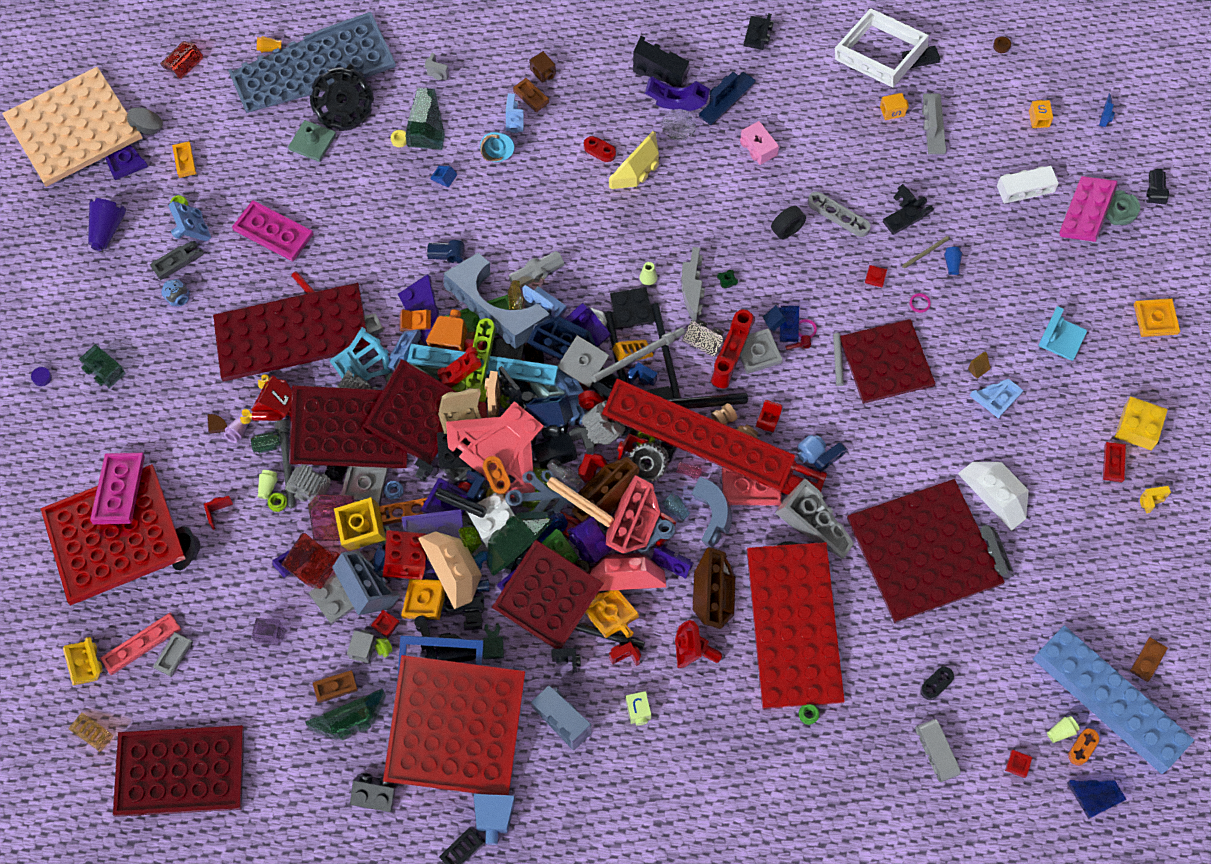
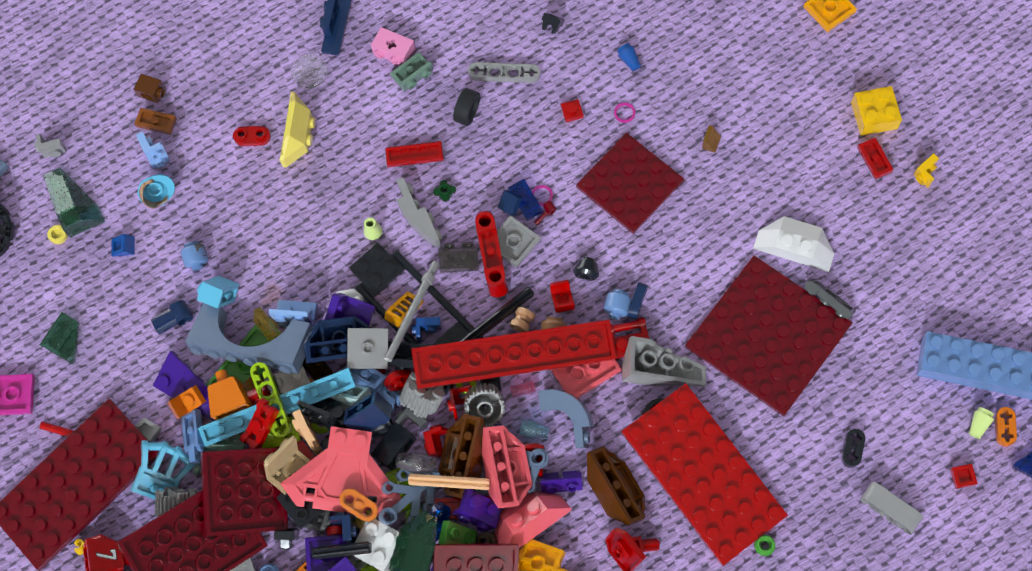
camera: 25 degrees left, 5 degrees up
(352, 218) = (62, 338): none -> clear green wing
(494, 214) = (194, 255): none -> medium blue head
(494, 250) = (217, 291): none -> medium azure brick
(537, 269) = (267, 284): light grey piece -> none
(656, 63) = (256, 25): black wedge -> none
(674, 98) = (301, 43): dark purple arch -> none
(721, 236) = (414, 154): none -> red plate
(762, 171) = (412, 71): none -> sand green bracket
(804, 407) = (586, 269): none -> black cone
(838, 359) = (587, 206): light grey bar -> none
(907, 216) = (564, 40): black hinge -> none
(925, 252) = (600, 63): dark tan axle -> none
(997, 397) = (743, 159): light blue wing -> none
(1062, 336) = (763, 71): medium azure bracket -> none
(1148, 659) = (1009, 316): dark orange plate -> none

